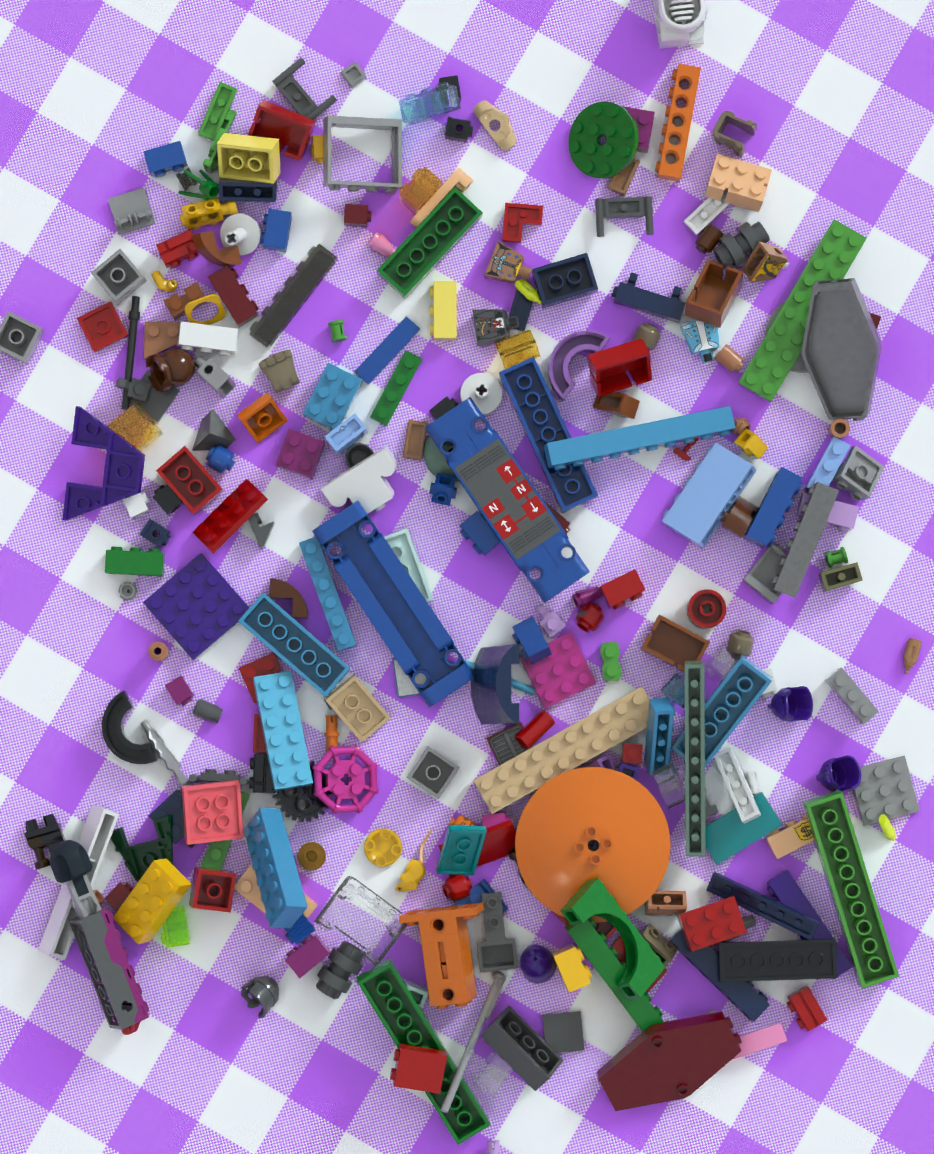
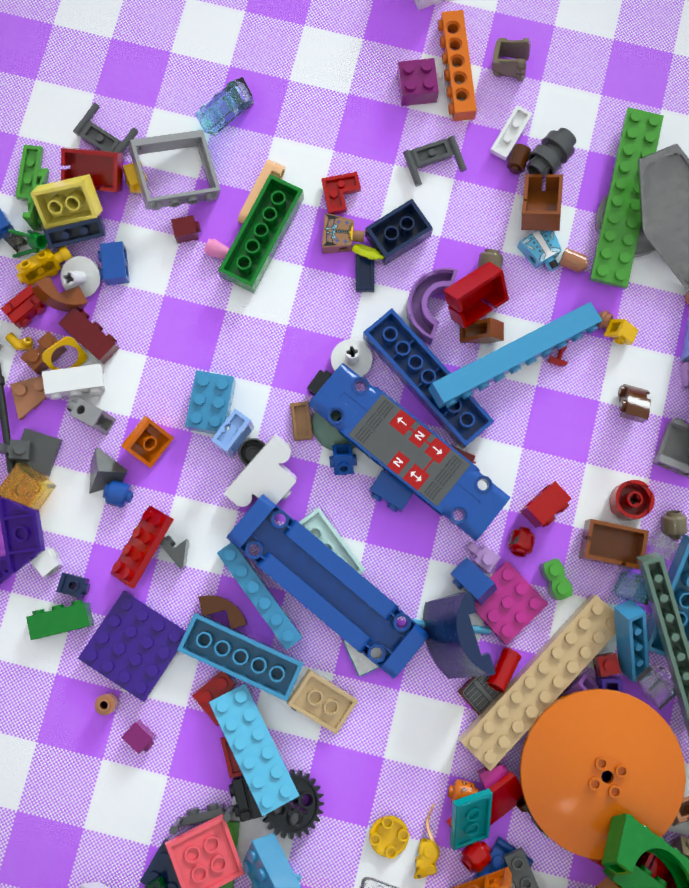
camera: 15 degrees left, 5 degrees down
(115, 736) = (86, 806): black brick -> none
(122, 590) = (56, 650): light grey plate -> none
(164, 753) = (142, 807): light grey sword -> none
(167, 499) = (76, 548): black brick -> none
(170, 369) = (46, 419): reddish brown tile -> none
(189, 480) = (92, 523): red brick -> none
(207, 711) = (172, 749): dark grey piece -> none
(280, 370) = (152, 391): dark tan piece -> none
(293, 296) = (146, 320): clear smoke brick -> none
(300, 454) = (194, 466): magenta brick -> none
(311, 856) = (320, 869): pearl gold plate -> none
(331, 731) = (304, 735): orange pin -> none
(337, 331) = (197, 340): bright green bush -> none
(353, 74) = (147, 106): light grey tile -> none
(355, 774) = (342, 781): dark pink plate -> none
(387, 350) = (250, 345): blue tile -> none
(396, 388) = (269, 377): green plate -> none
(419, 190) = (237, 186): clear yellow brick -> none
(433, 772) = (417, 745): light grey brick -> none
(444, 311) = (293, 292): light yellow brick -> none
(451, 132) = (258, 127): black brick -> none
(492, 326) = (343, 292): dark grey torso -> none
(504, 136) = (301, 122): tan piece -> none
(517, 349) = (373, 307): clear yellow panel -> none
(586, 596) = (510, 523): magenta cone -> none
(621, 140) = (413, 95): green plate -> none
(621, 182) = (421, 126): medium nougat tile -> none
(647, 301) = (482, 230): dark blue brick -> none
(708, 495) = (597, 391): light blue brick -> none
(743, 180) = (537, 95): light nougat piece -> none
(765, 262) = (578, 162): medium nougat torso -> none
(771, 510) = (664, 382): blue brick -> none

